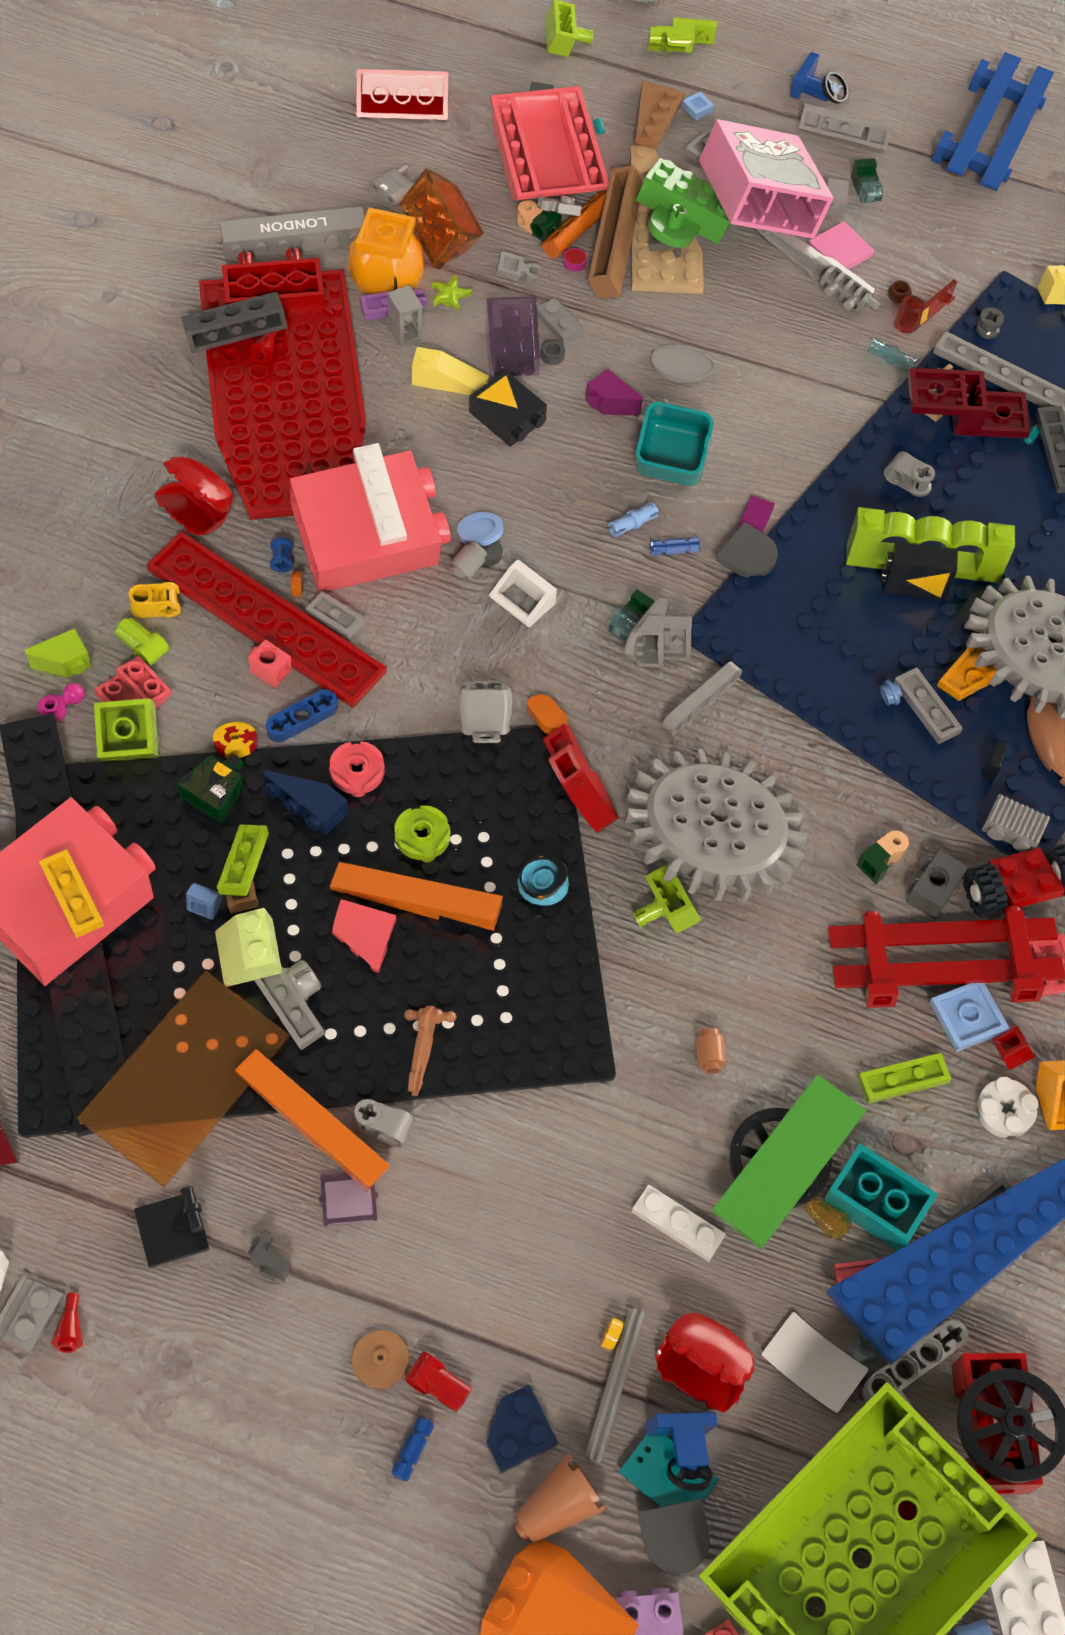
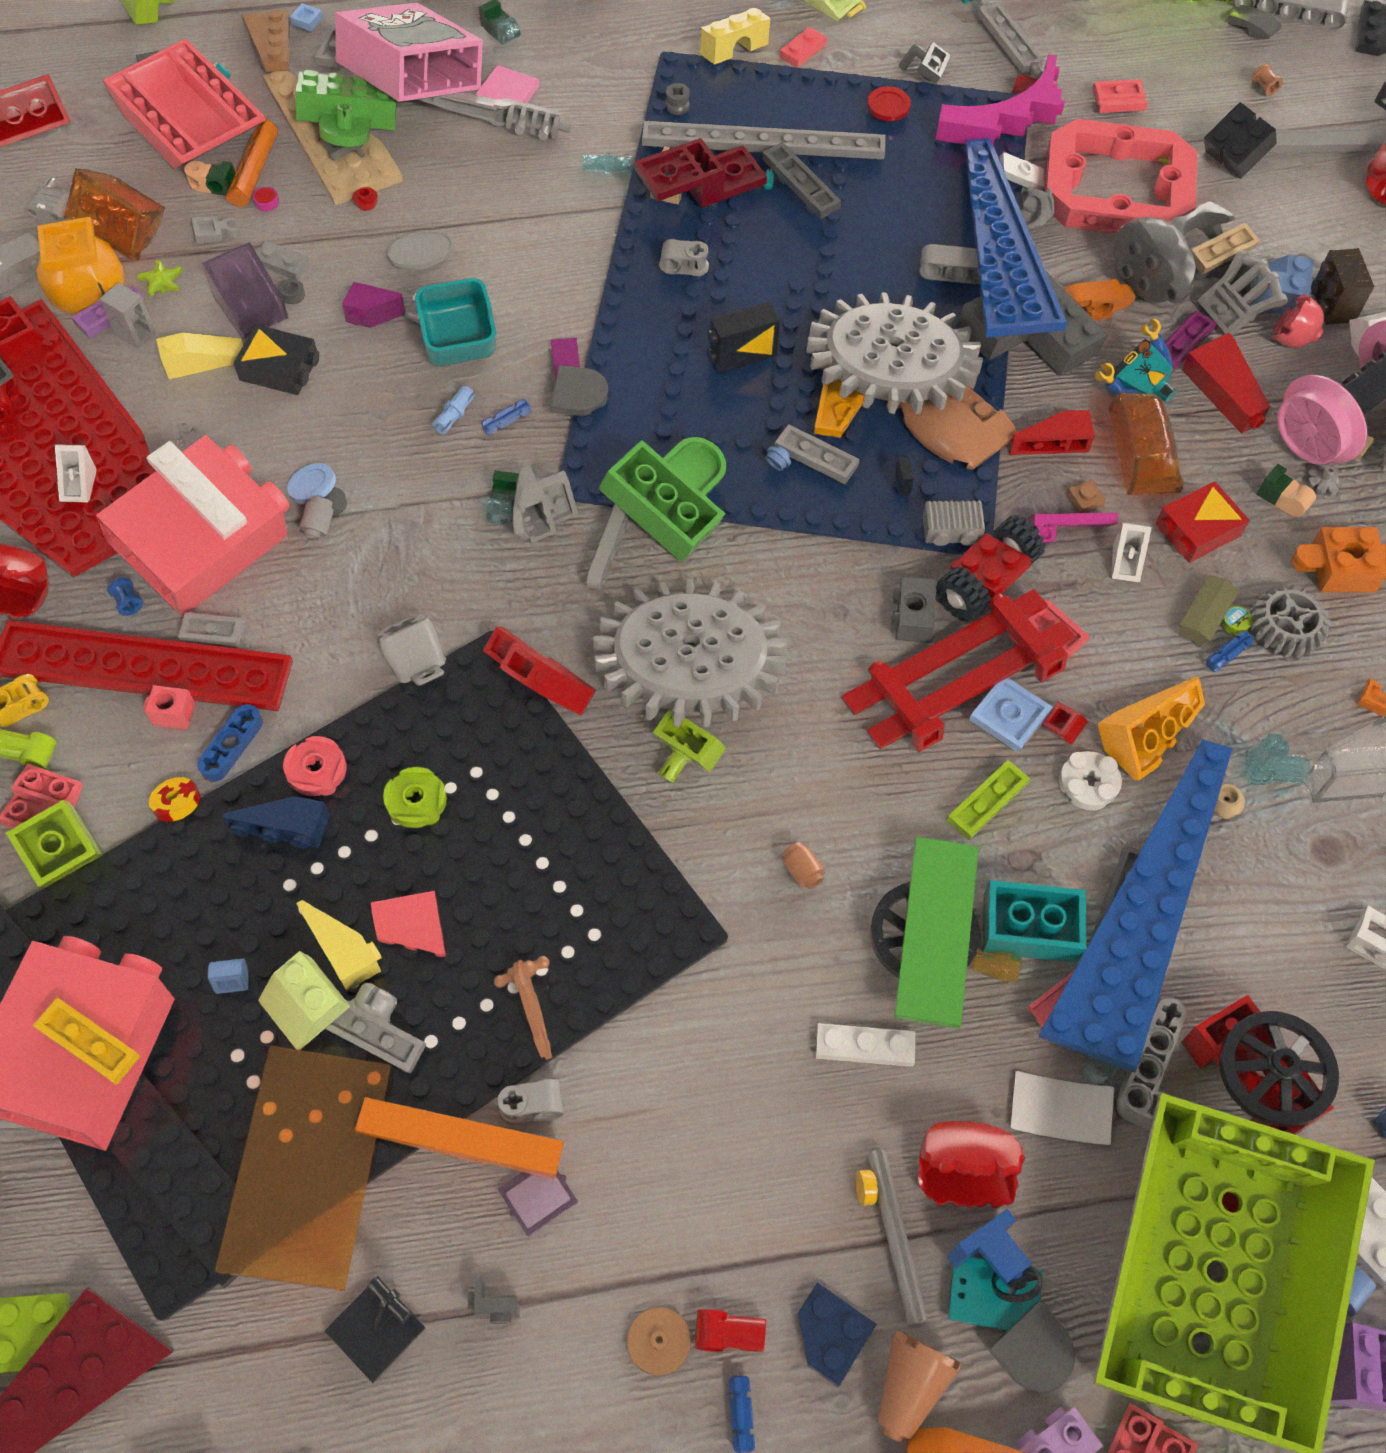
camera: 25 degrees left, 0 degrees up
(213, 786) = (177, 856): dark green torso -> none
(241, 903) = (266, 951): medium nougat plate -> none
(243, 860) = (248, 914): lime plate -> none
(293, 434) = (74, 473): none -> white slope
(297, 583) = (155, 617): orange tile -> none
(302, 926) = (344, 947): none -> light yellow slope
(418, 895) = (443, 860): orange slope -> none
(530, 583) = (390, 512): white tile -> none
(543, 880) = (558, 784): medium azure piece -> none
(546, 713) = (471, 626): orange tile -> none
(565, 205) = (230, 151): light grey plate -> none
(615, 233) = (292, 156): medium nougat brick -> none
(660, 296) = (365, 198): none -> red plate
(776, 678) = (670, 492): none -> bright green brick
(887, 850) = (855, 600): leg -> none
(899, 290) = (582, 106): reddish brown plate -> none
(915, 312) = (607, 114): clear red door -> none
(987, 564) = (681, 314): lime fence -> none

